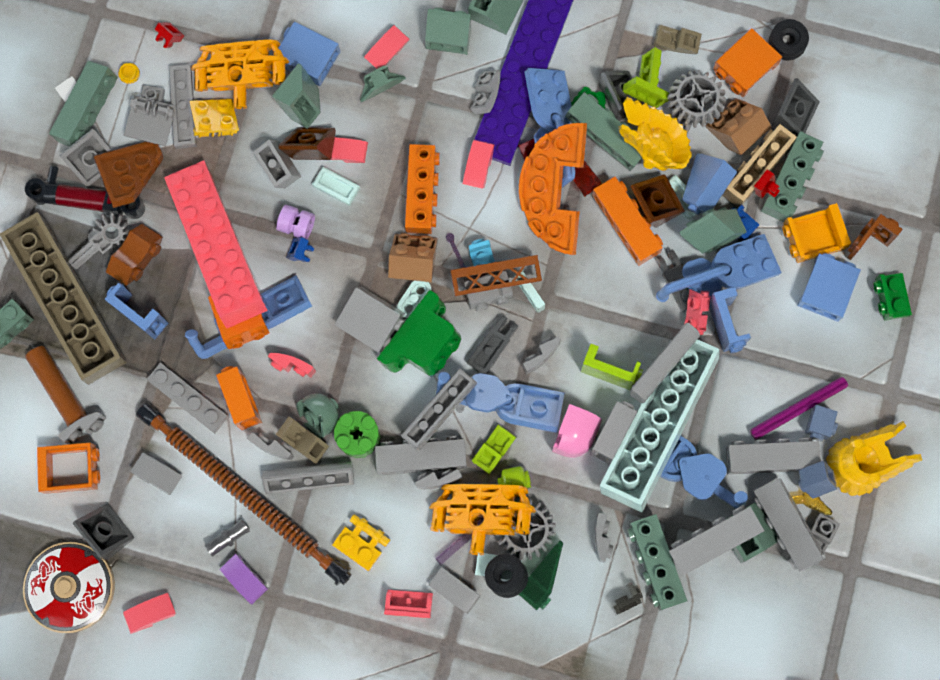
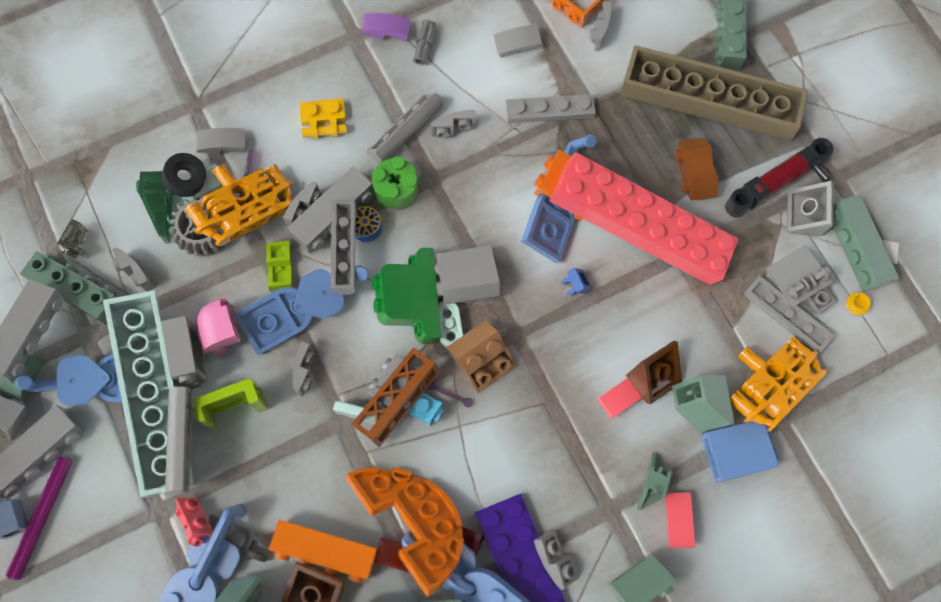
camera: 130 degrees right, 5 degrees down
(55, 385) = (649, 37): dark orange brick -> none
(100, 239) = (733, 163): light grey gear -> none
(128, 171) = (770, 220): dark orange plate -> none
(152, 324) = (650, 121): medium blue panel -> none
(169, 32) = (866, 363): red tile -> none
(210, 466) = (326, 83): dark orange hose -> none
(214, 117) = (755, 325): yellow hinge -> none
(238, 398) = (509, 131): orange window -> none
(276, 164) = (661, 328): light grey brick -> none
(286, 362) = (504, 189): coral slope -> none
(288, 222) = (610, 299): lavender wheel -> none
(302, 440) = (432, 147): dark tan brick -> none
(319, 412) = (438, 174): sand green cylinder -> none
(336, 186) = (601, 361): light aqua tile -> none
(401, 421) = (368, 224): none -> blue wheel
(408, 604) = (247, 104): coral hinge -> none
(420, 189) = (529, 419): orange brick -> none
(478, 164) = (501, 485): coral slope -> none
(491, 347) = (350, 340): dark grey hinge -> none
(515, 476) = (239, 252): lime head -> none
(723, 321) = (177, 544): medium blue panel -> none

